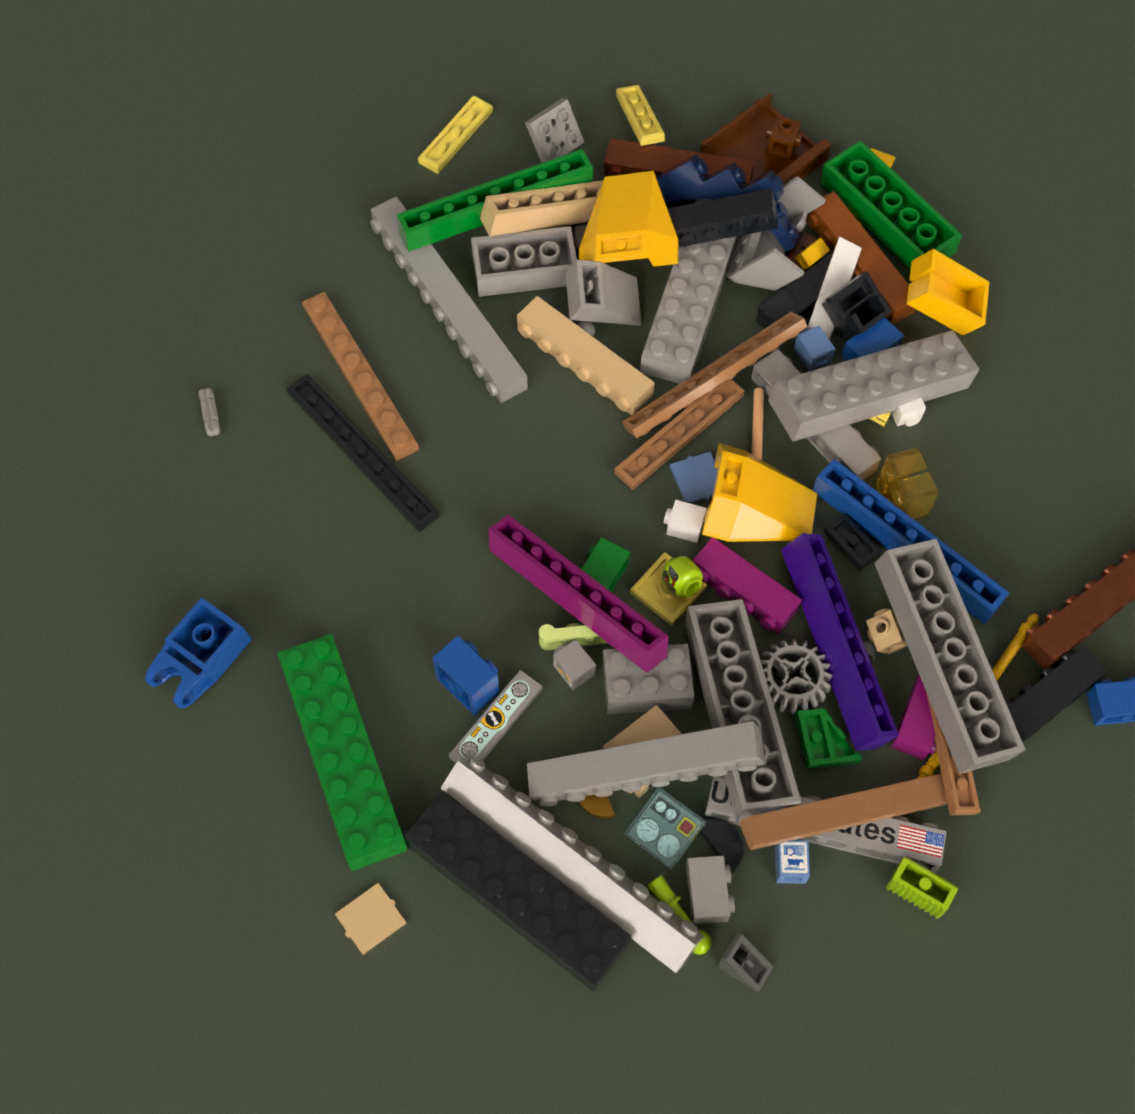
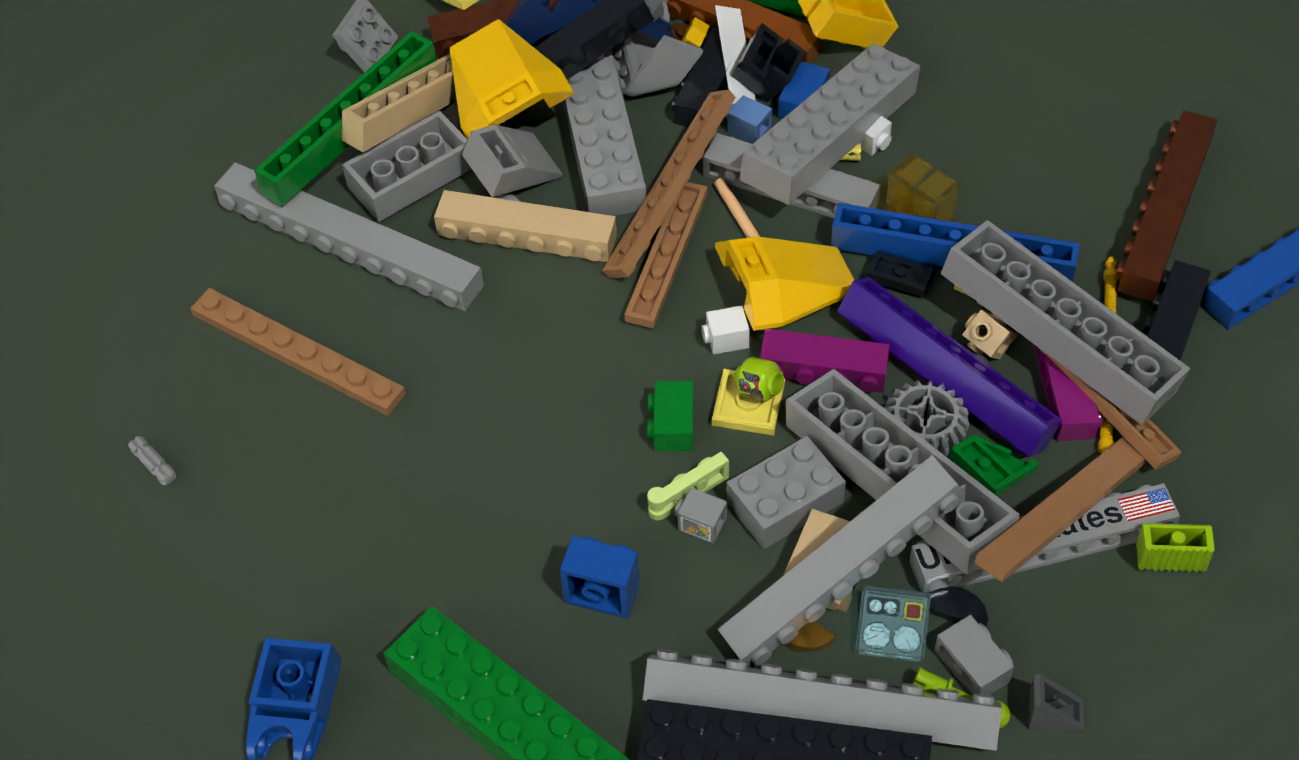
camera: 25 degrees left, 10 degrees down
(363, 453) = (348, 423): black tile -> none
(455, 134) = (257, 84): light yellow tile -> none
(498, 718) = (655, 607): tile -> none
(578, 593) = (668, 439): magenta brick -> none
(695, 477) = (711, 287): medium blue piece -> none
(792, 862) = (1037, 589): brick -> none

